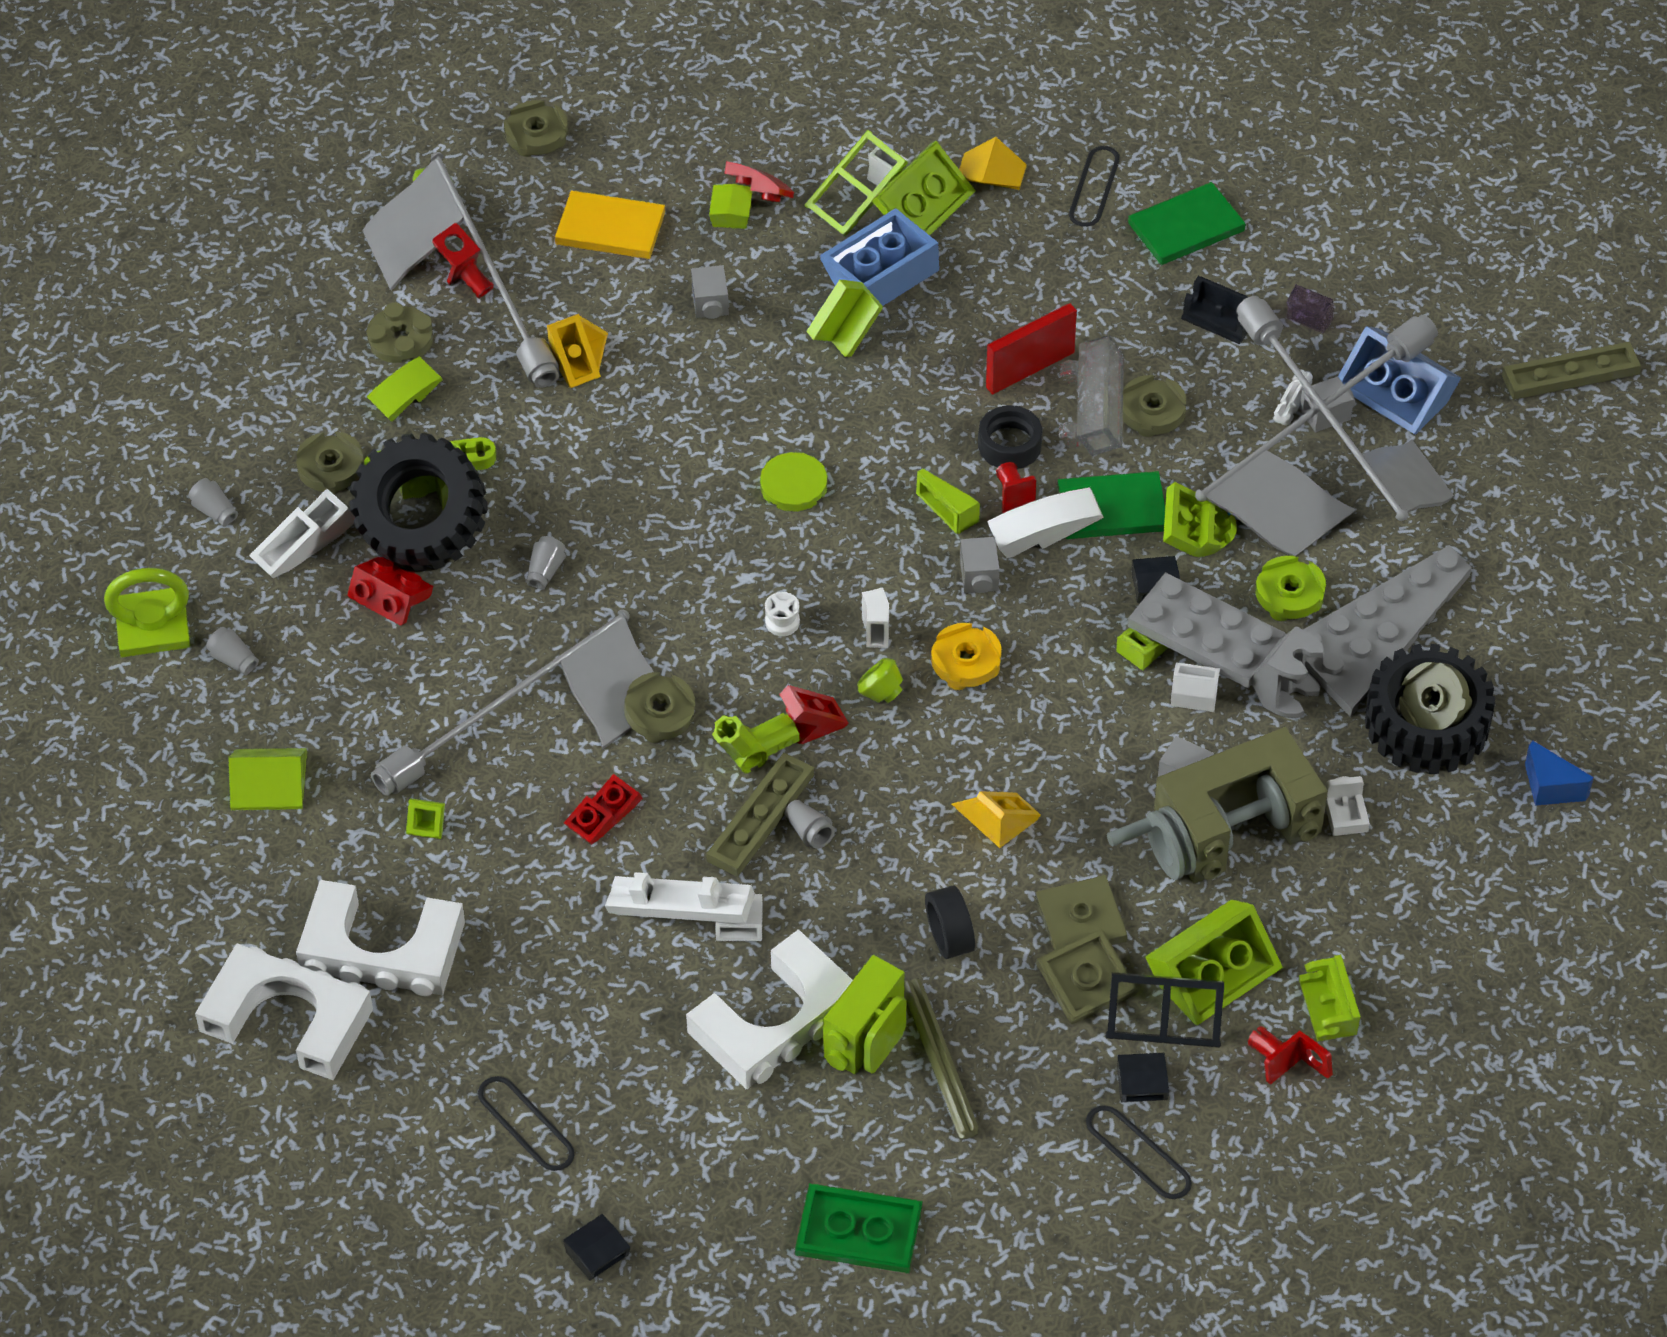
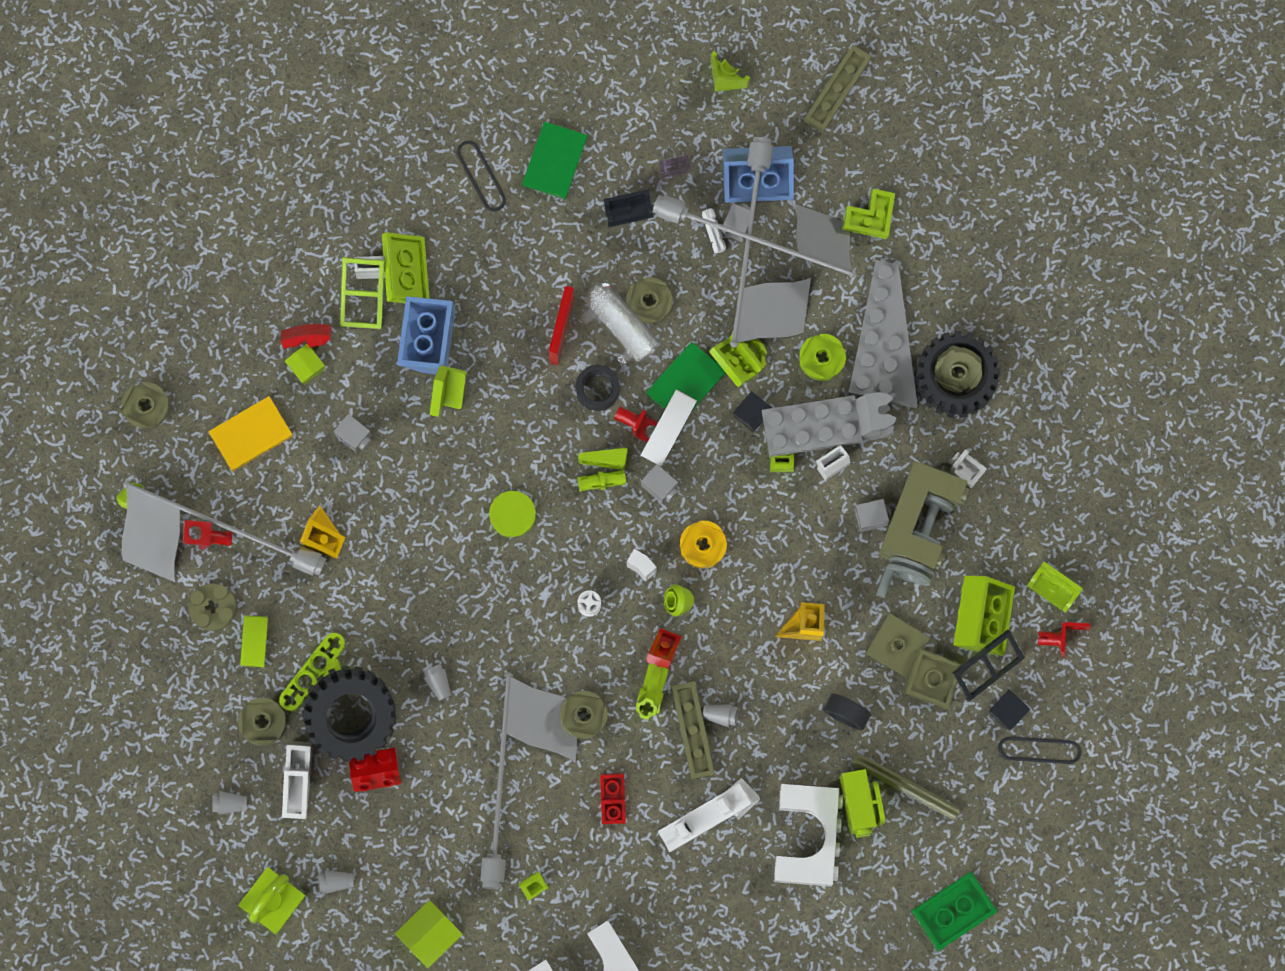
camera: 45 degrees left, 25 degrees up
(921, 519) = (601, 480): none -> lime pin
(993, 165) = (419, 216): yellow slope -> none
(1451, 270) = (725, 75): none -> lime slope
(1484, 510) = (873, 221): none -> lime plate
(1554, 778) = (1046, 361): blue slope -> none

